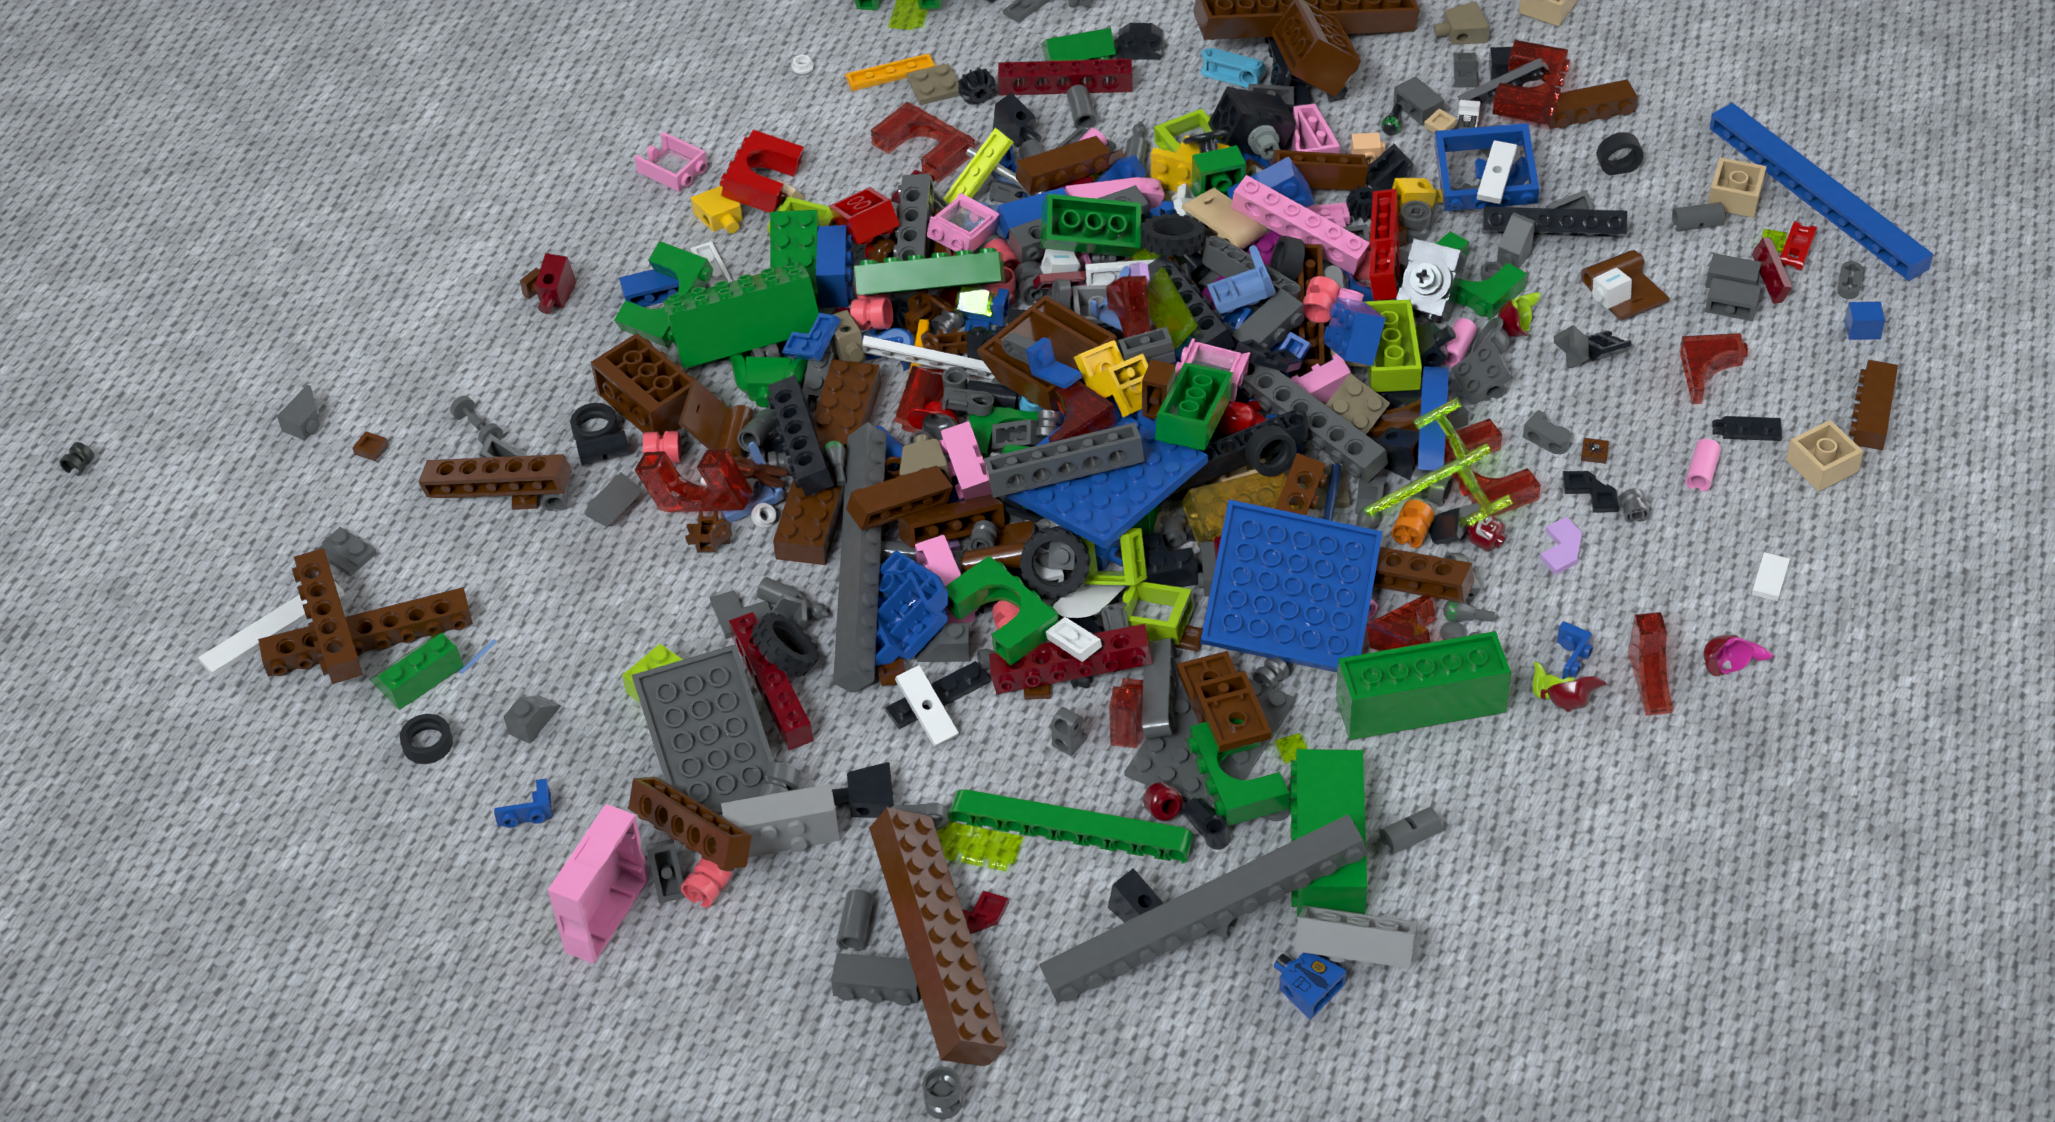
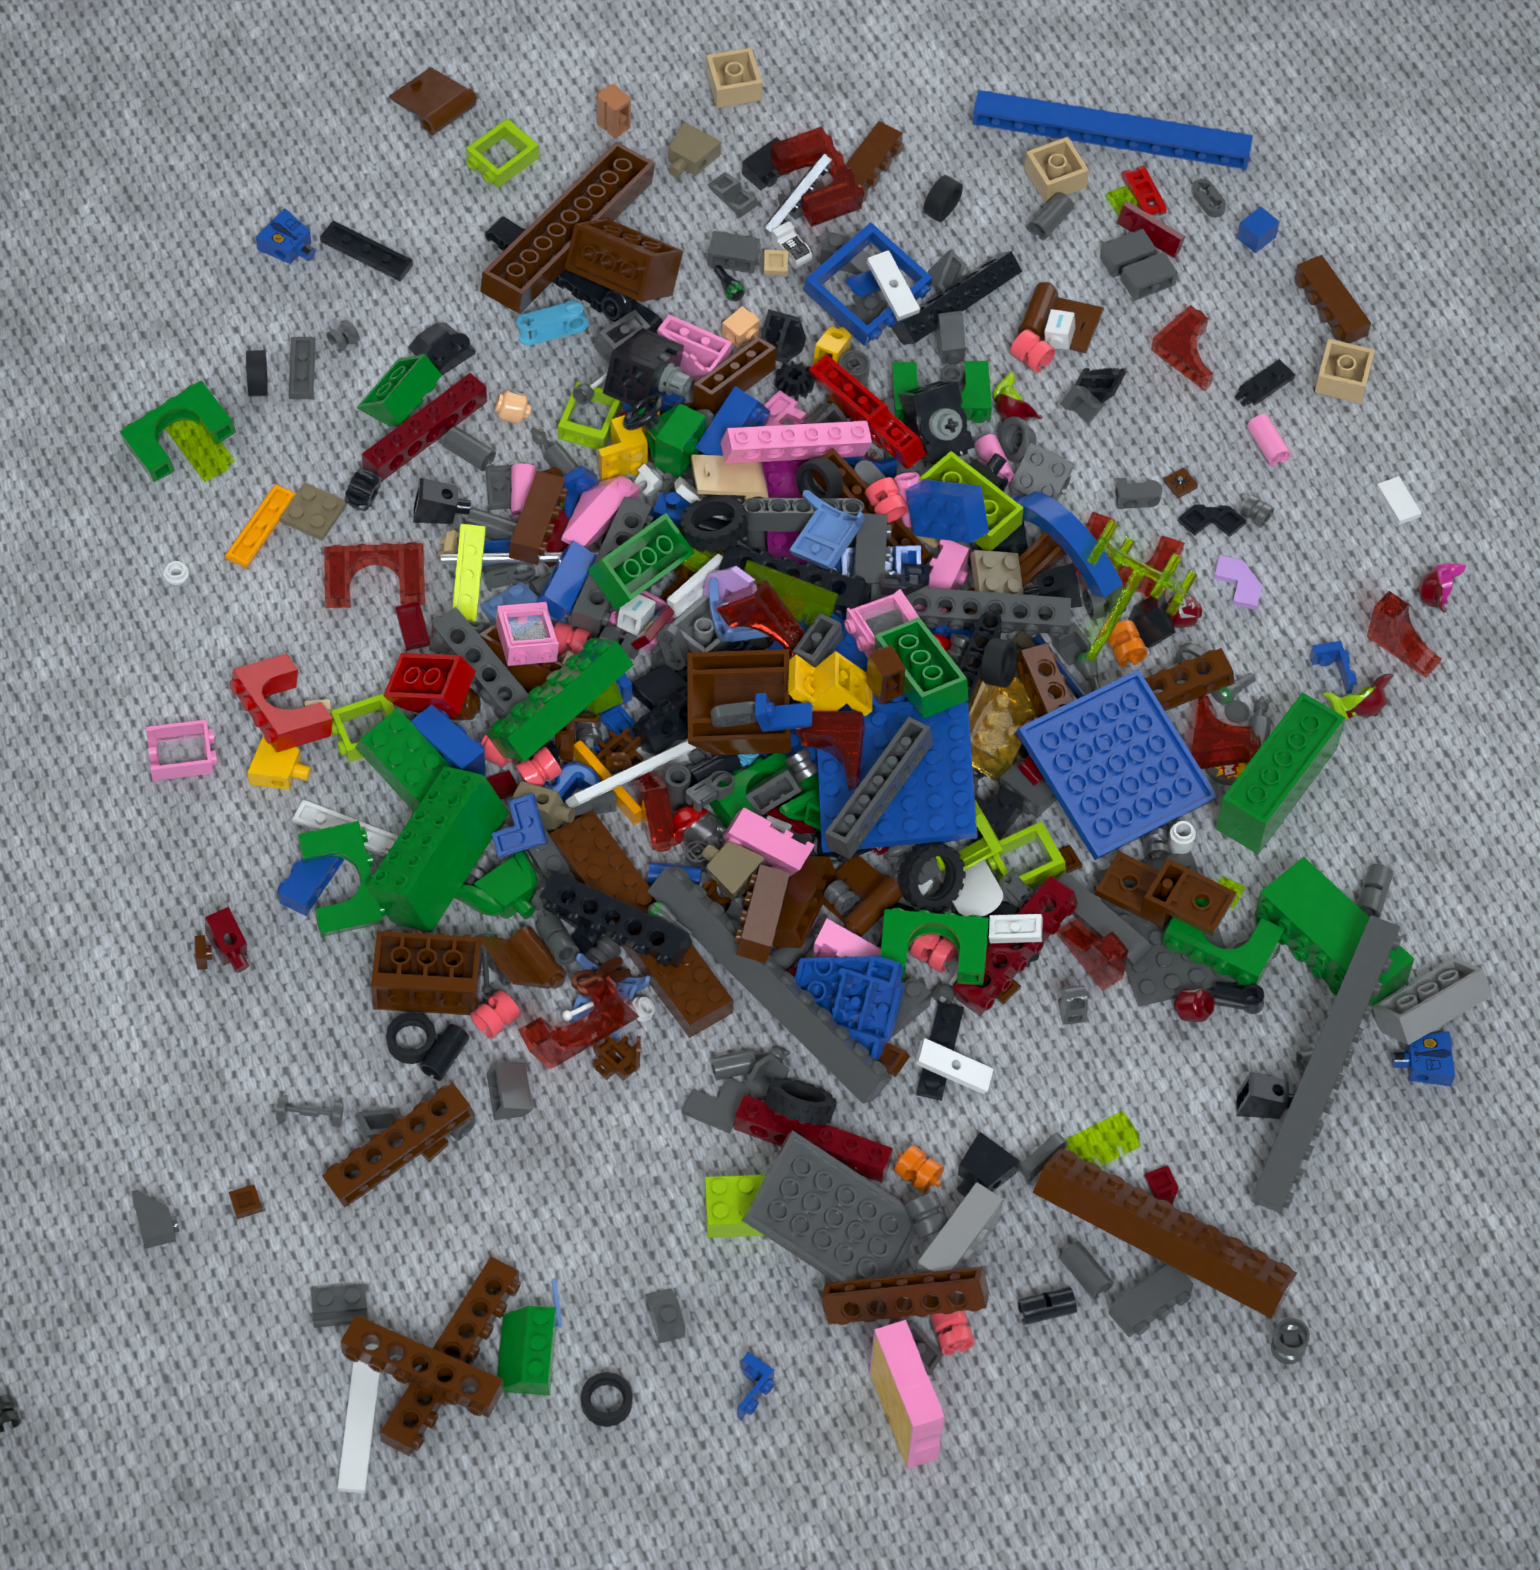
camera: 50 degrees left, 10 degrees up
(795, 921) = (1047, 1305): none -> black pin
(818, 756) = (920, 1170): none -> orange wheel
(890, 368) = (602, 804): none -> dark grey slope
(1071, 824) = (1148, 1075): green beam -> none
(1141, 100) = (512, 407): none -> light nougat head
(1194, 114) = (587, 389): none -> dark grey hinge
(1293, 680) = (1181, 838): none -> white brick
(1574, 290) = (1030, 349): none -> coral wheel

